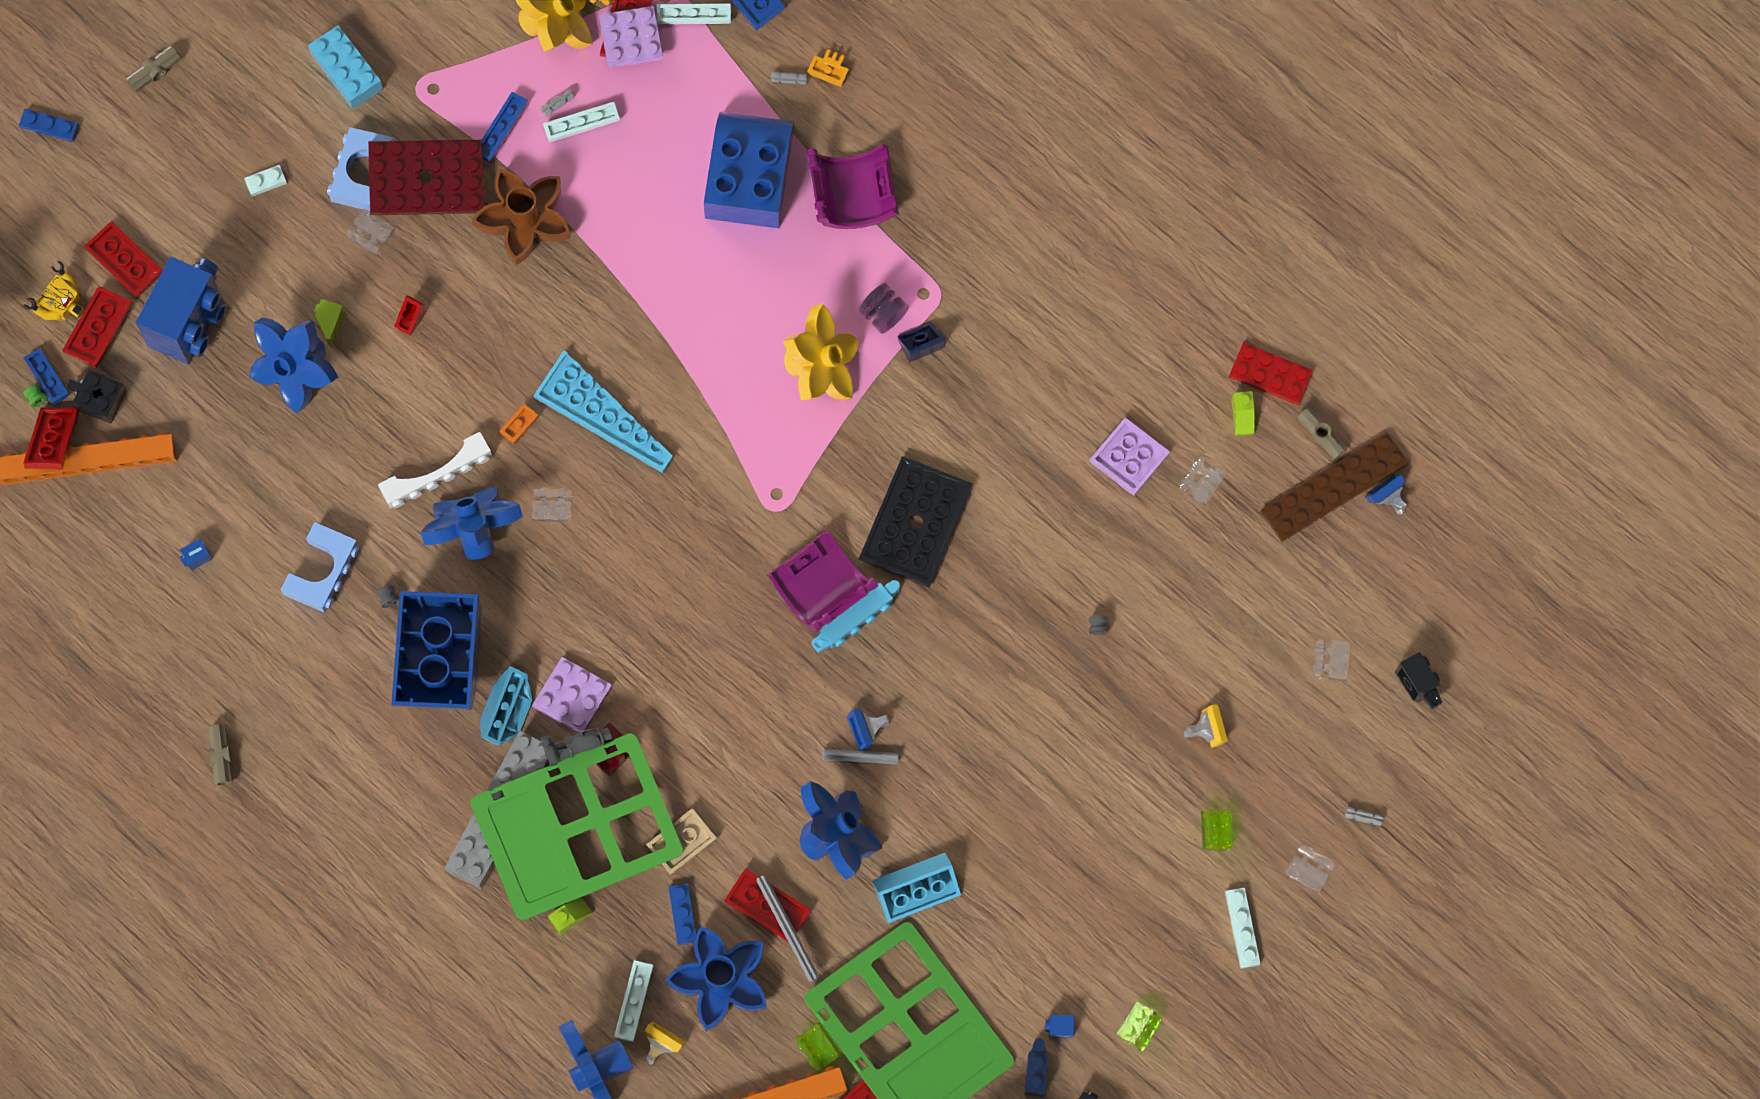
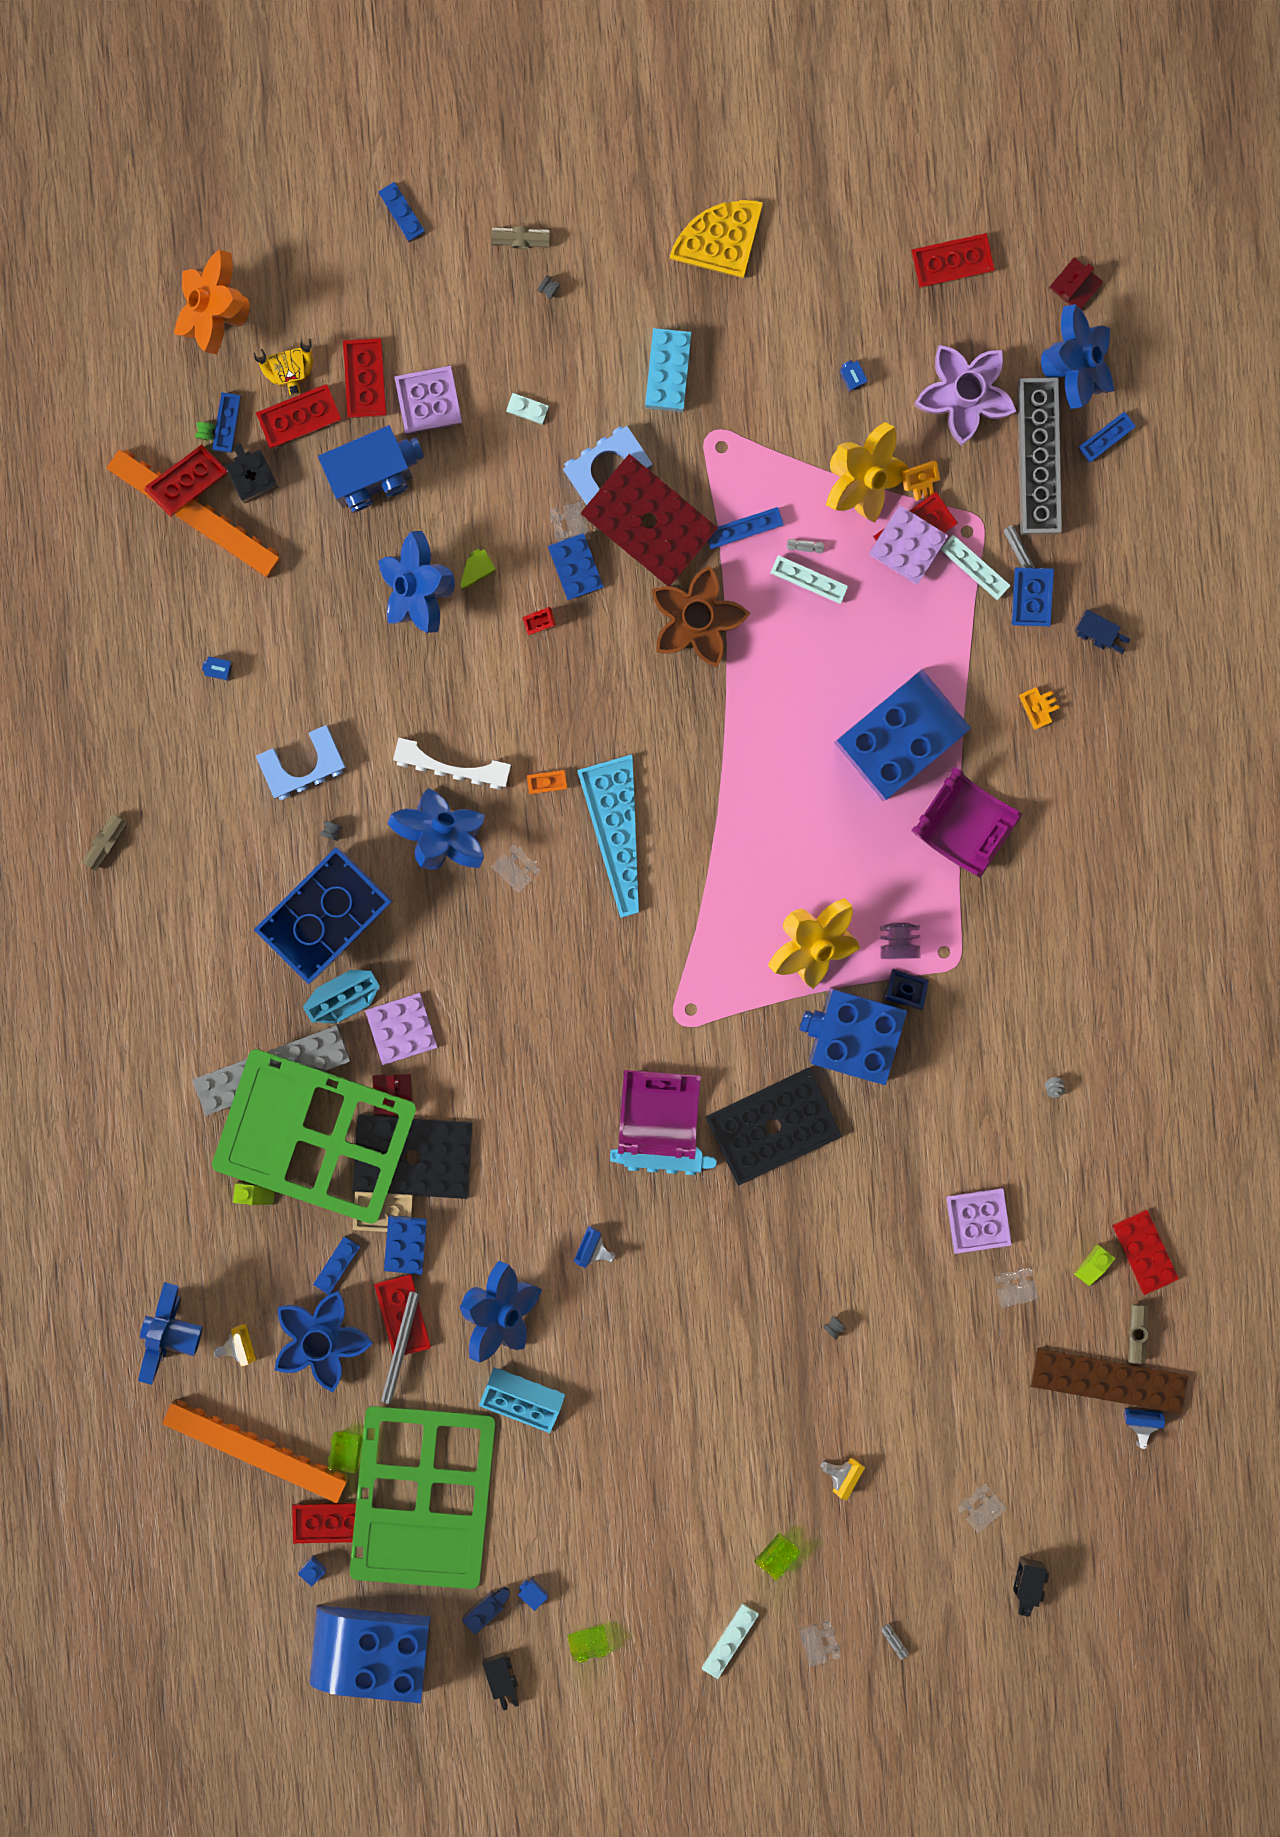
camera: 50 degrees right, 15 degrees up
(185, 233) = (428, 399): none -> lavender plate
(205, 84) = (548, 287): none -> dark grey wheel
(400, 256) = (575, 566): none -> blue plate
(574, 745) = (365, 1077): dark grey piece -> none
(633, 1001) = (244, 1298): light aqua plate -> none
(691, 762) = (443, 1156): none -> black plate
(720, 849) = (405, 1244): none -> blue plate
(790, 78) = (1000, 686): light grey axle -> none
(860, 756) = (570, 1266): light grey axle -> none
(913, 400) = (854, 1035): none -> blue brick
(1093, 314) = (1055, 1087): none -> light grey wheel

